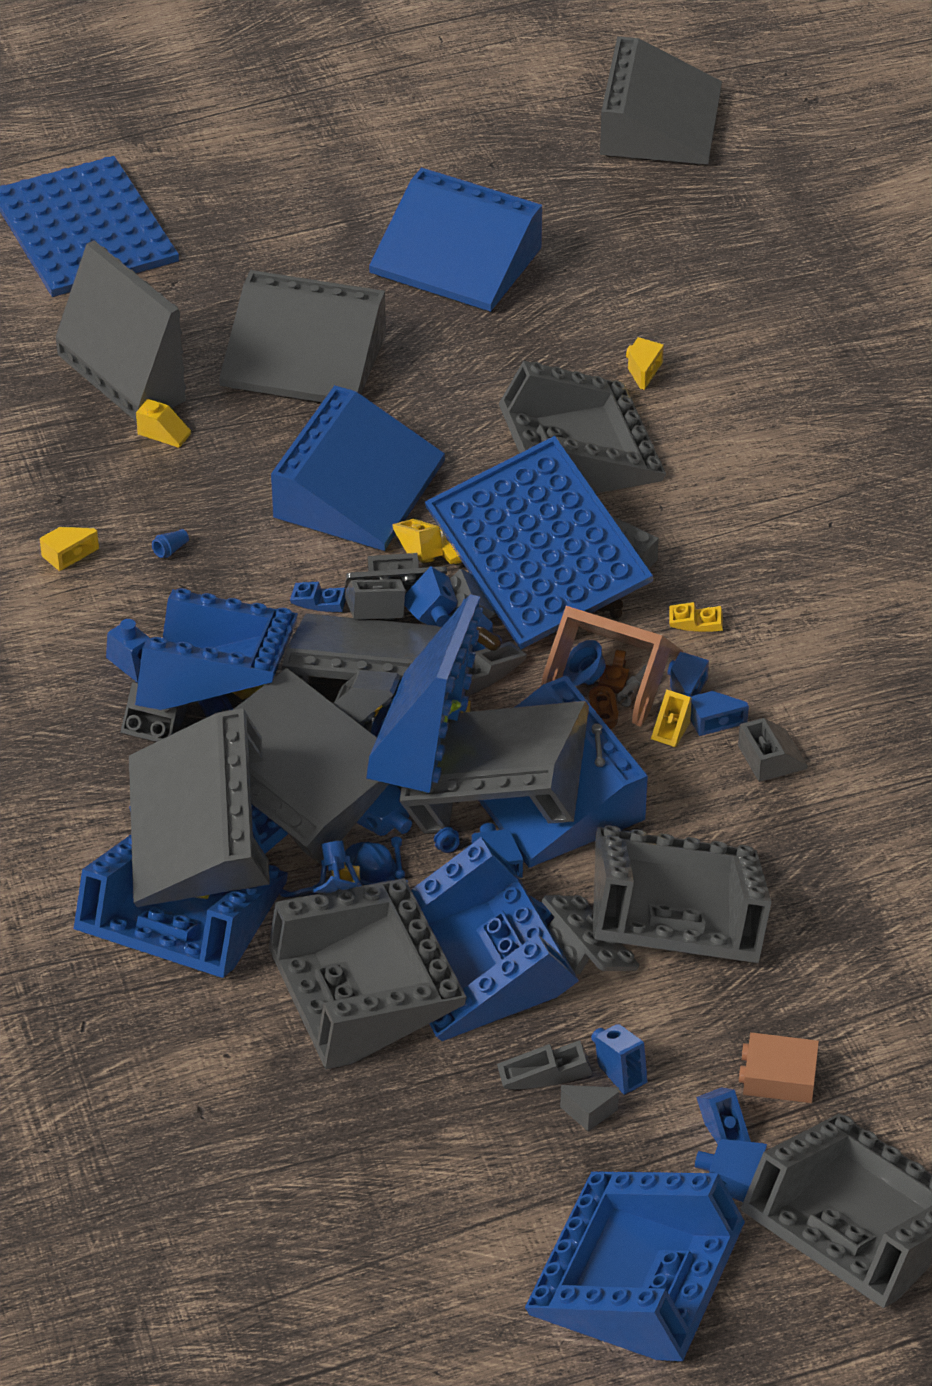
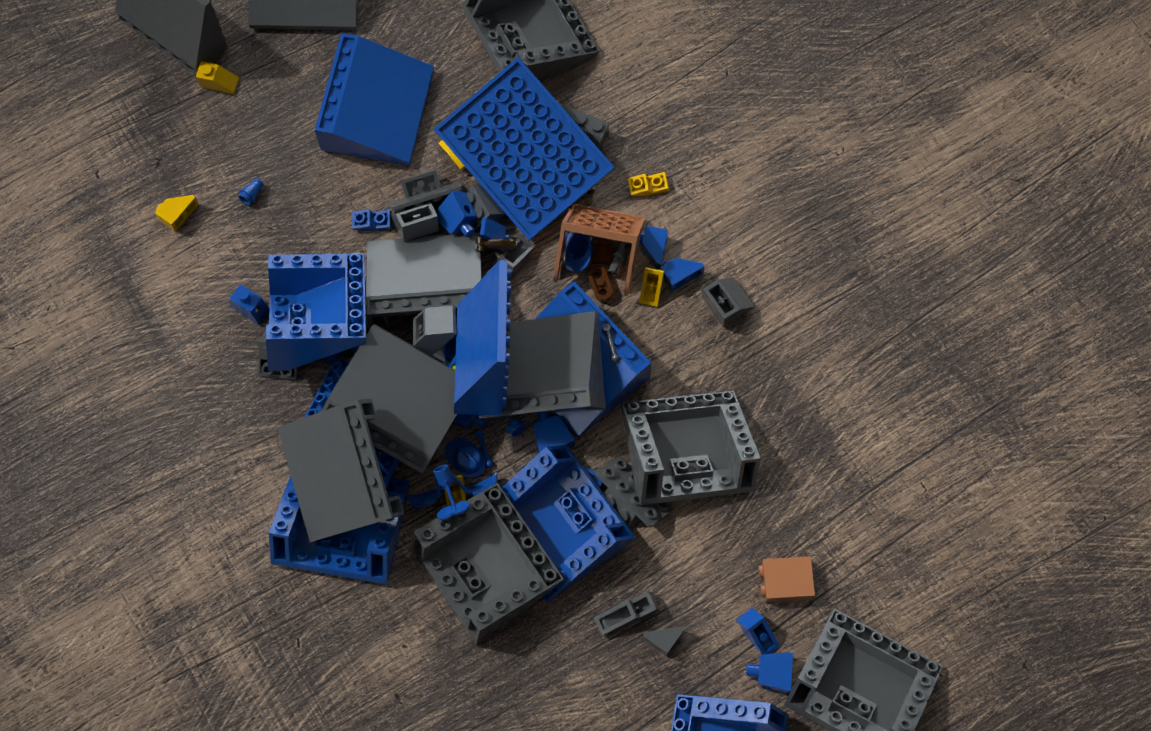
camera: 10 degrees left, 25 degrees up
(420, 539) = (433, 153): yellow slope -> none
(621, 1057) = (677, 596): blue torso -> none

